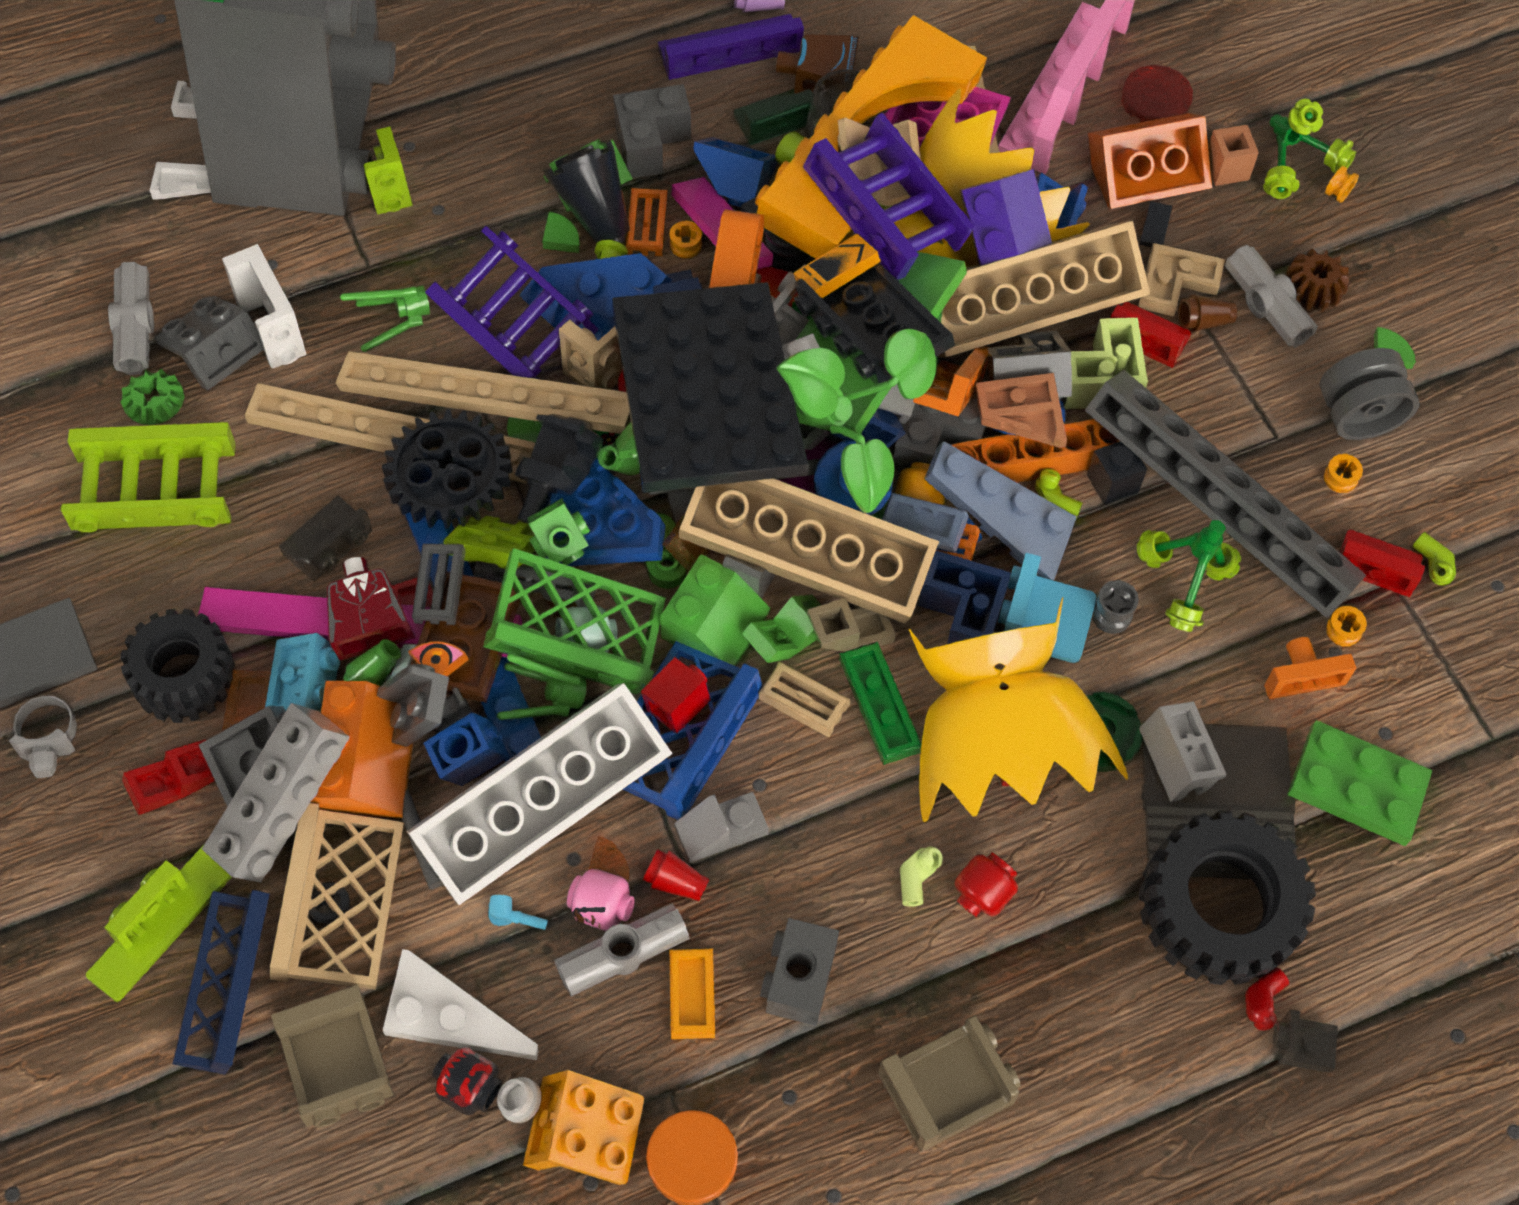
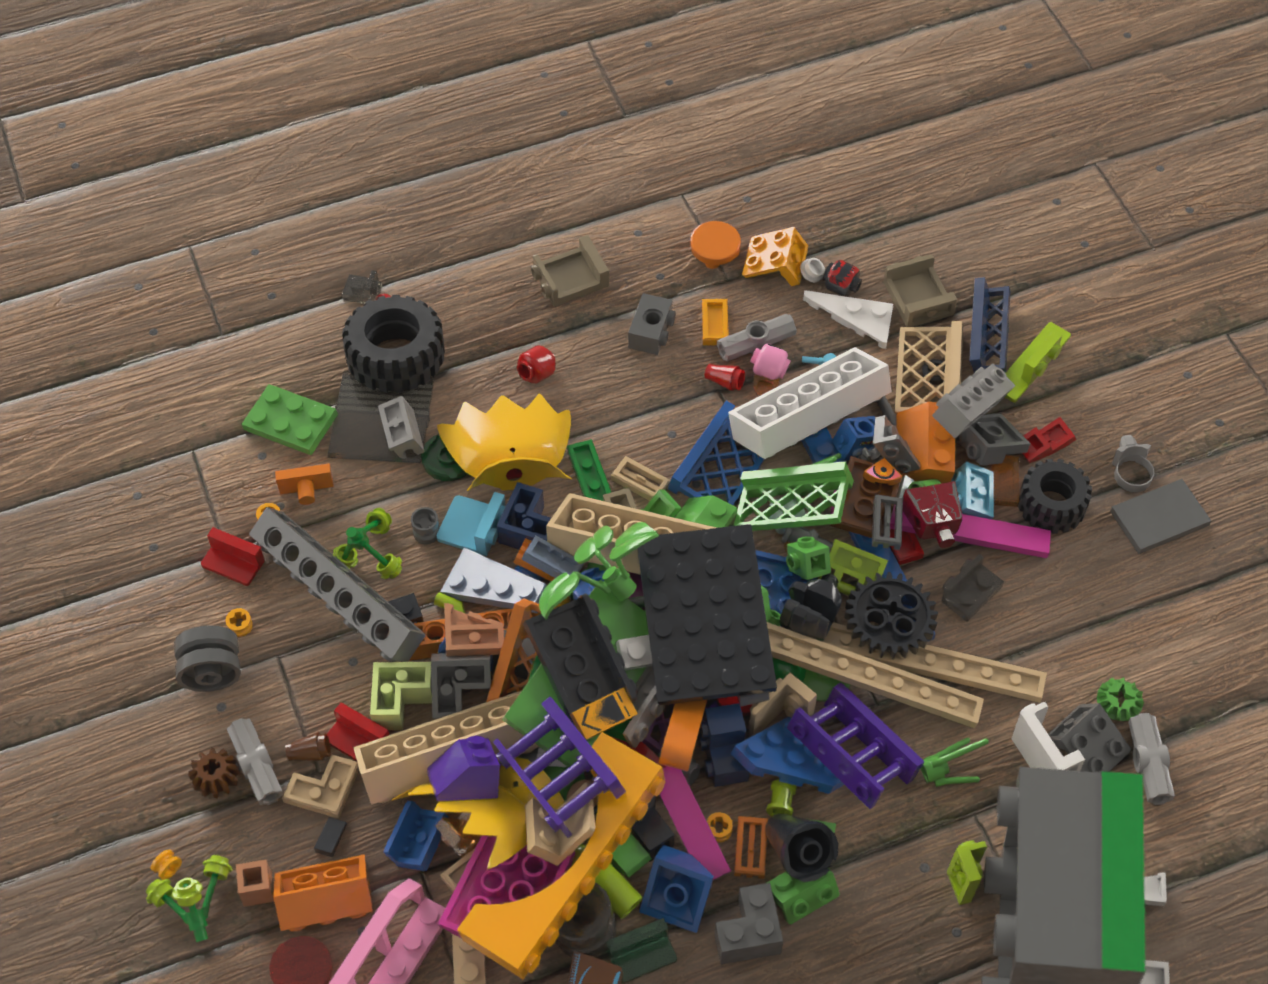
camera: 175 degrees left, 5 degrees down
(141, 443) = (1106, 655): lime fence -> none
(676, 694) = (725, 464): red brick -> none
(720, 826) = (699, 405): light grey slope -> none
(915, 872) = (578, 379): yellowish green arm -> none
(1388, 339) = (172, 719): bright green tile -> none
(1440, 559) = (189, 558): lime arm -> none

